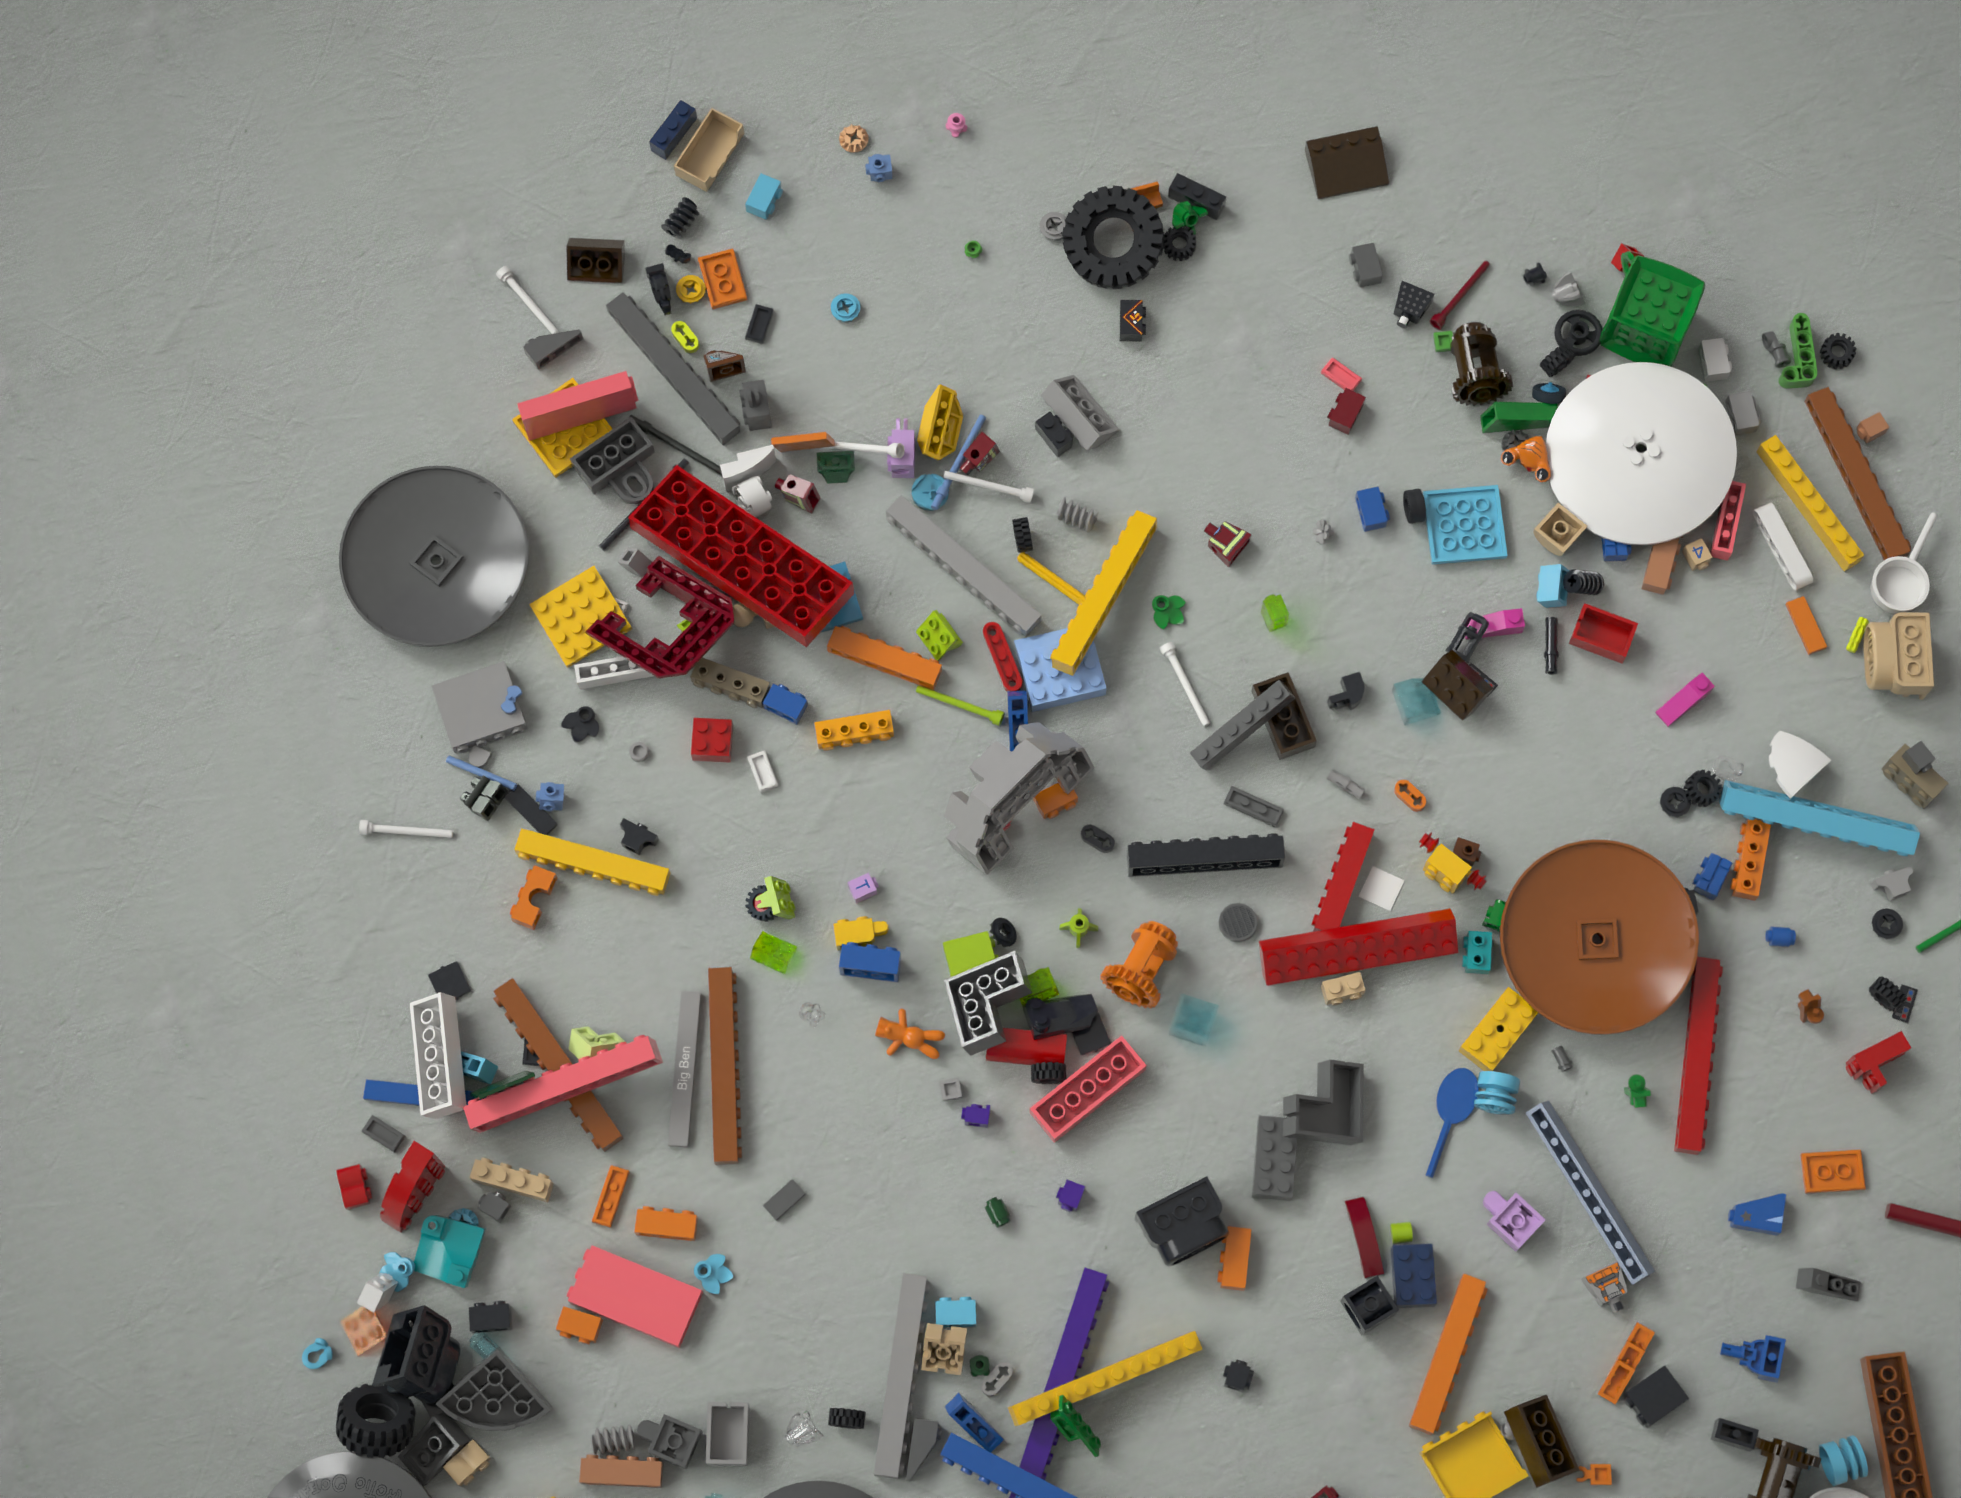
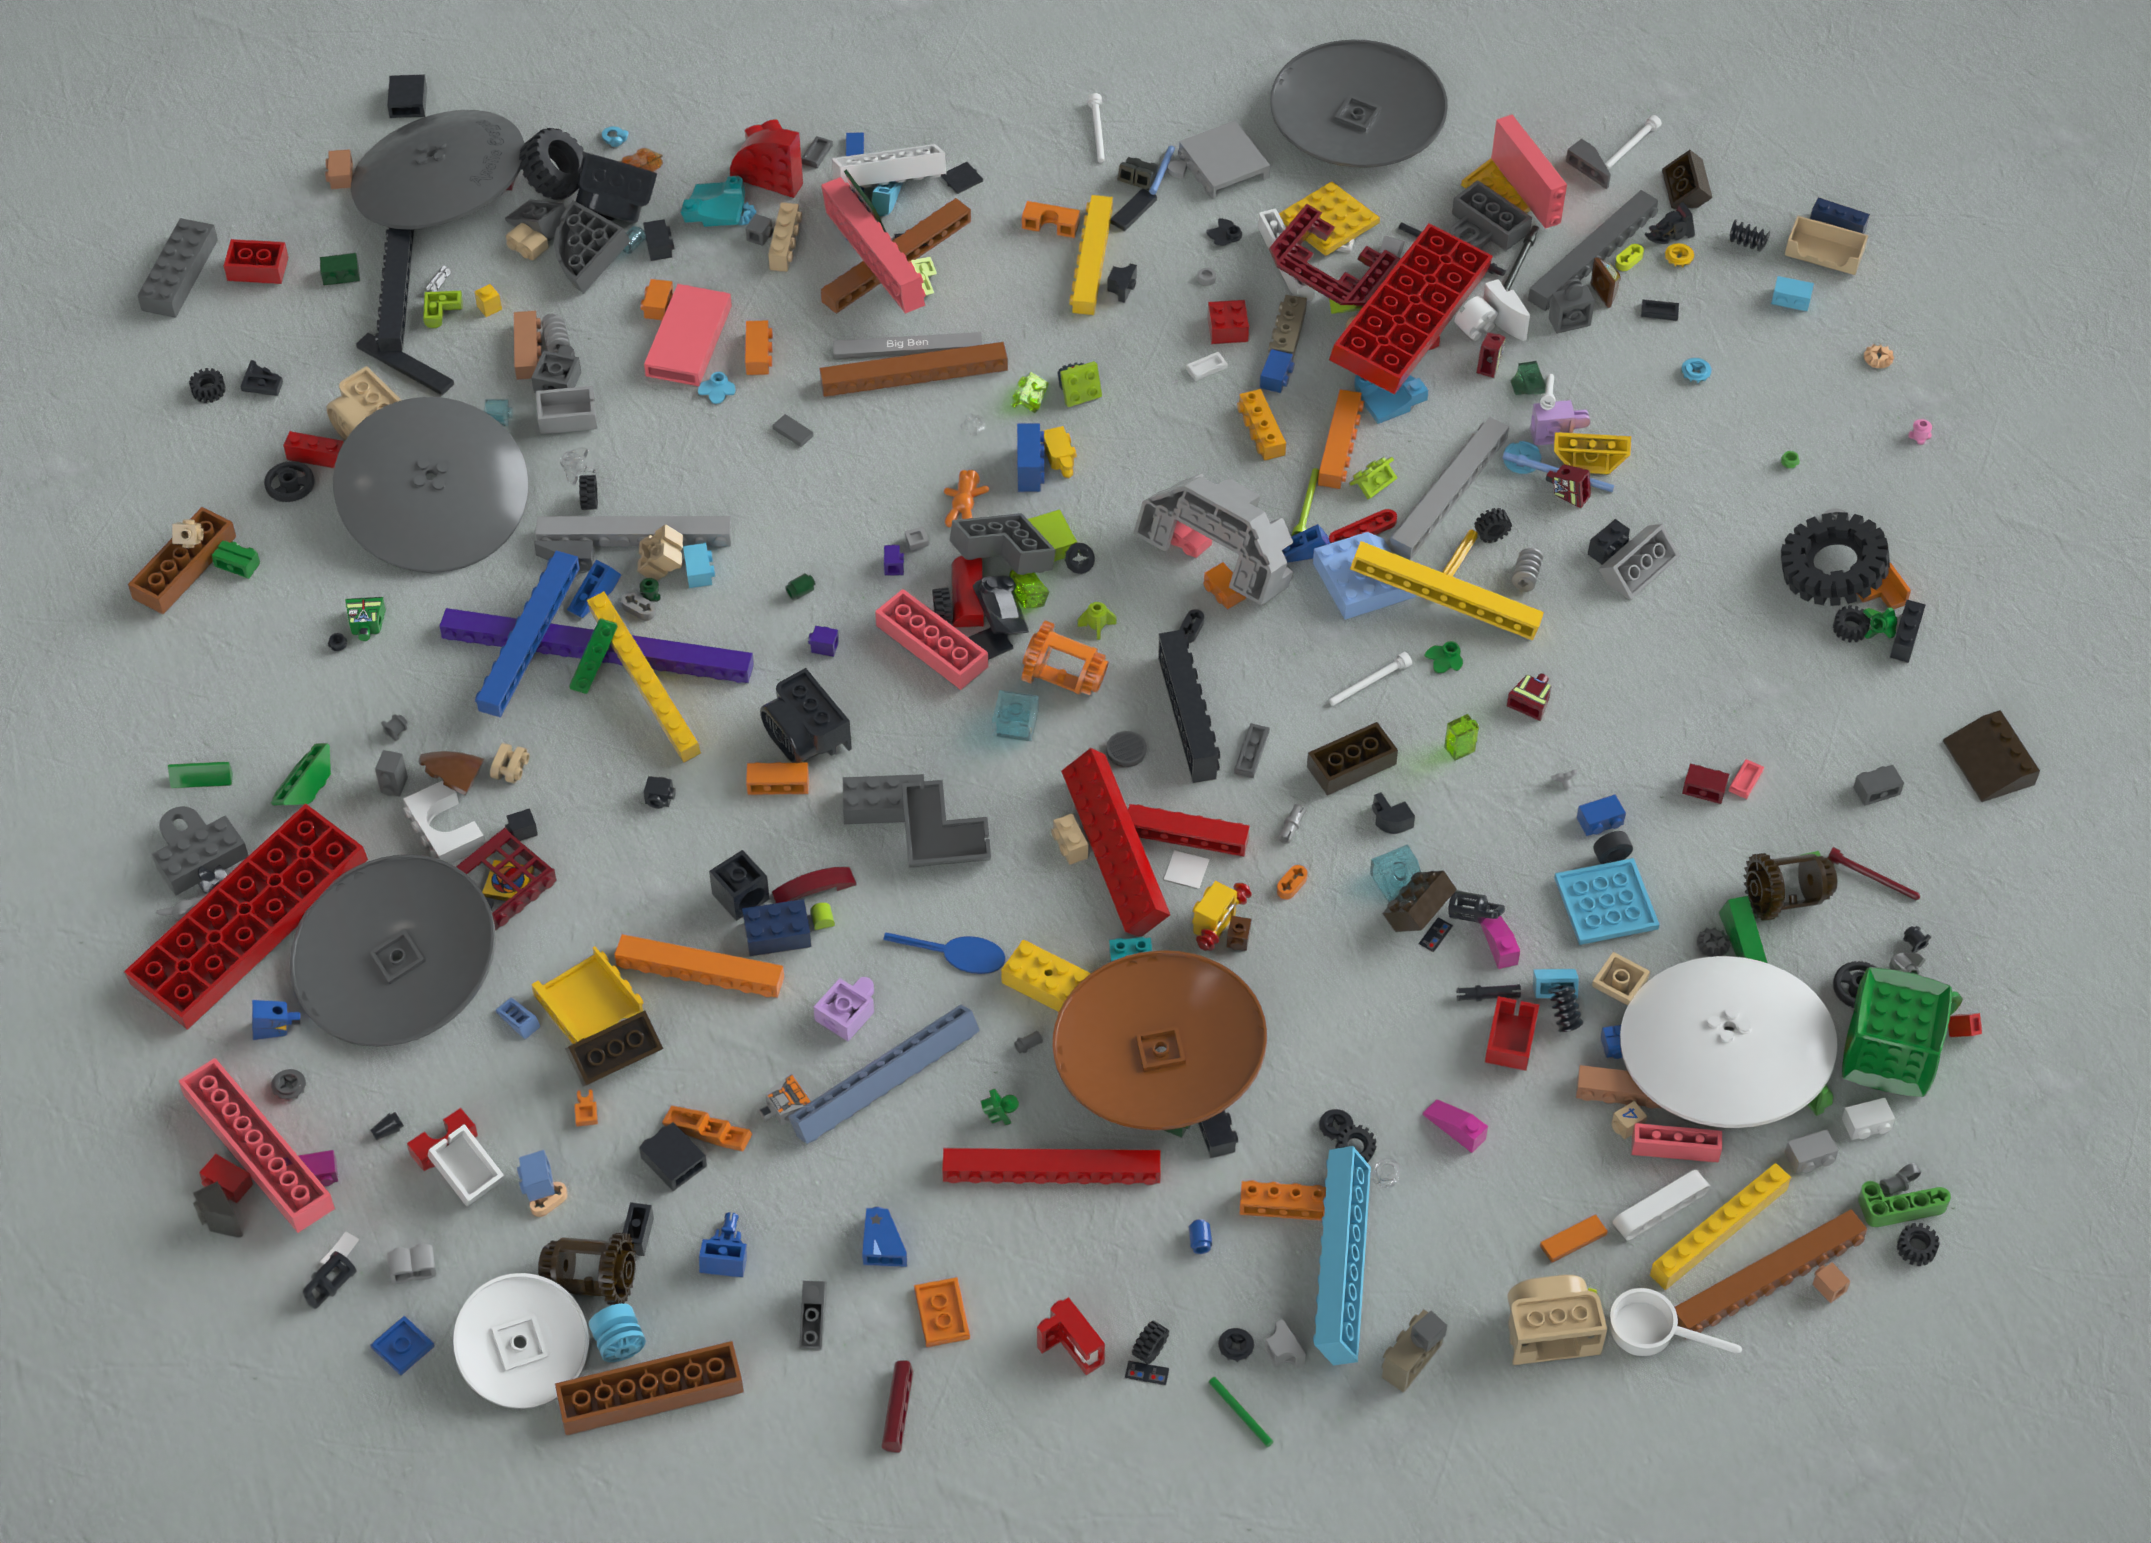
camera: 80 degrees right, 20 degrees down
(377, 1292) = (670, 156): white brick -> none
(395, 1268) = (694, 174): medium azure plate -> none
(513, 693) = (1227, 171): medium blue piece -> none
(550, 796) = (1148, 216): medium blue brick -> none
(610, 1196) = (780, 309): orange tile -> none
(677, 254) = (1712, 240): black piece -> none
(722, 278) = (1698, 277): orange tile -> none
(803, 441) = (1542, 344): orange tile -> none
(863, 887) = (1104, 448): lavender brick -> none
(879, 168) = (1851, 374): medium blue brick -> none
(1024, 493) = (1539, 528): white piece -> none
(1131, 320) = (1751, 591): black brick -> none
(1242, 725) = (1331, 715): dark grey brick -> none
(1411, 304) = (1845, 828): black torso -> none
(1497, 1091) = (978, 977): medium azure wheel -> none
(1532, 456) = (1700, 947): orange head -> none
(1548, 393) = (1778, 956): black wheel -> none
(1557, 360) = (1819, 963): black tyre -> none
(1712, 876) = (1256, 1163): blue brick -> none
(1795, 762) = (1402, 1229): white brick -> none
(1810, 1007) = (1121, 1264): dark orange hips -> none

